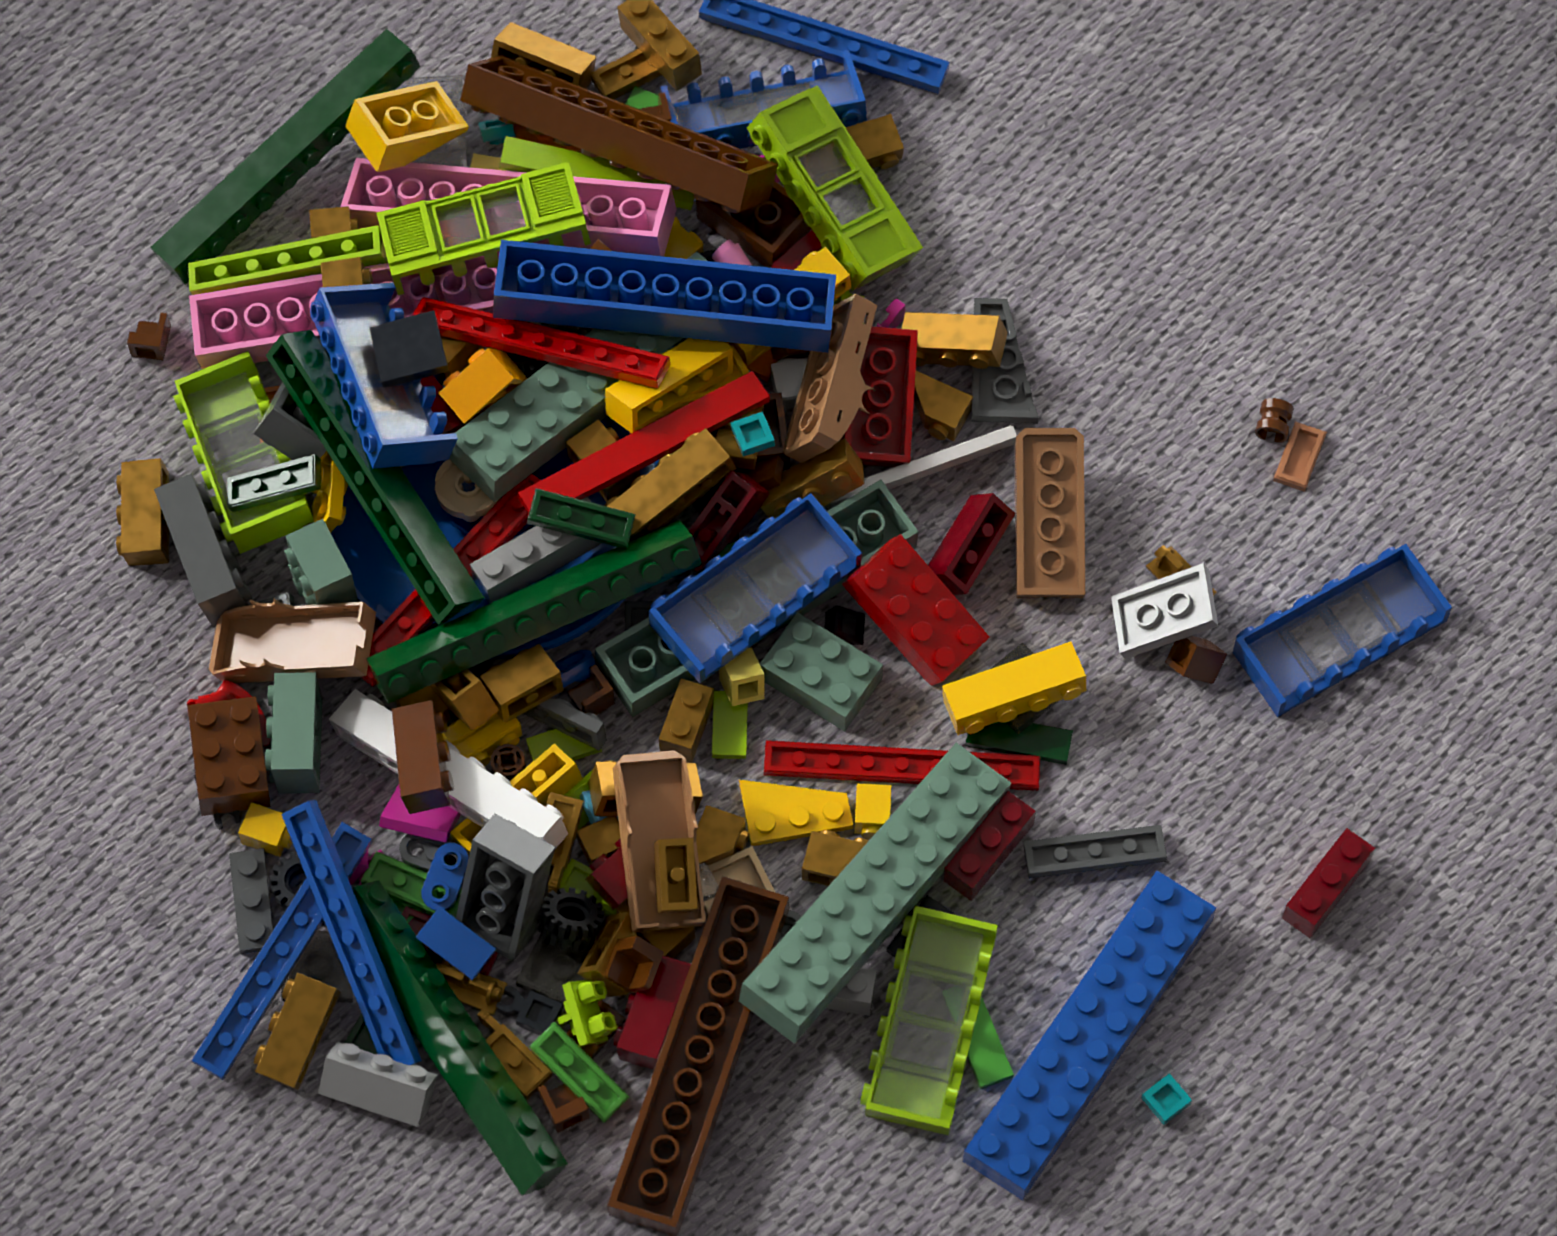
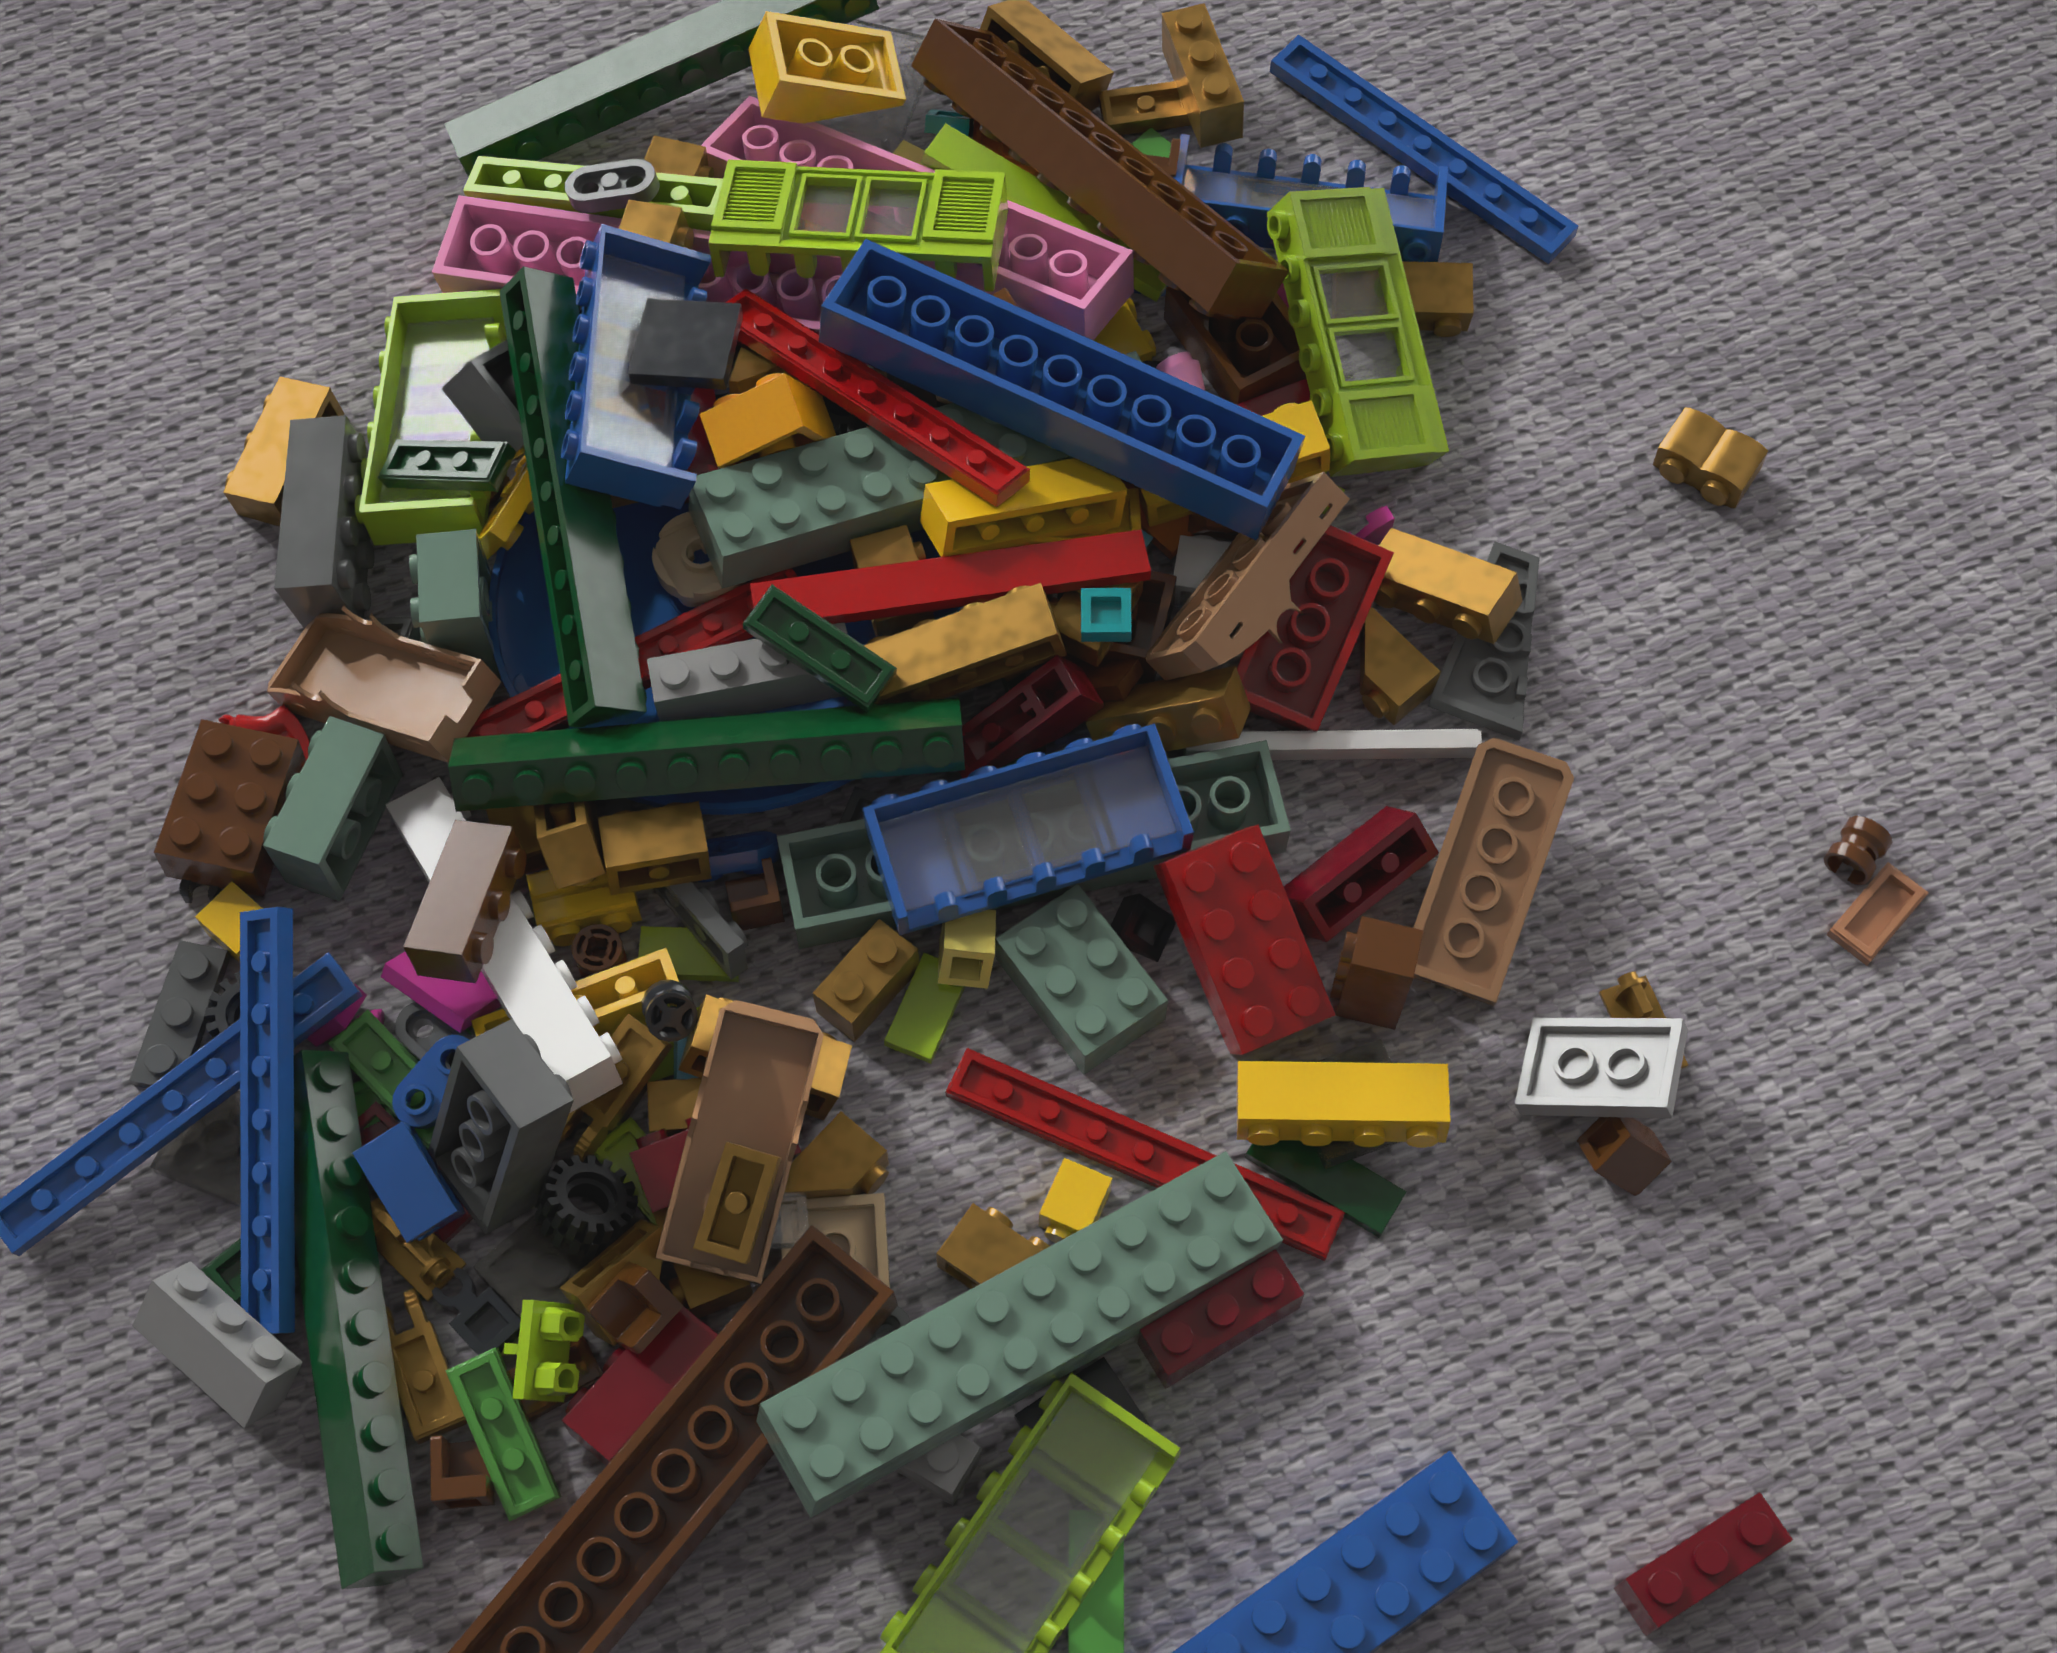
camera: 20 degrees right, 0 degrees up
(150, 338) = (398, 241): reddish brown panel -> none
(296, 1030) = (143, 1225): pearl gold brick -> none
(301, 256) = (611, 185): none -> dark grey plate
(584, 783) = (673, 1022): none -> black wheel
(791, 812) = (961, 1164): yellow wing -> none
(1006, 601) = (1376, 972): none -> reddish brown brick
(1092, 194) = (1710, 458): none -> pearl gold brick
(1094, 851) = (1372, 1383): dark grey plate -> none
(1341, 629) = (1854, 1184): window -> none

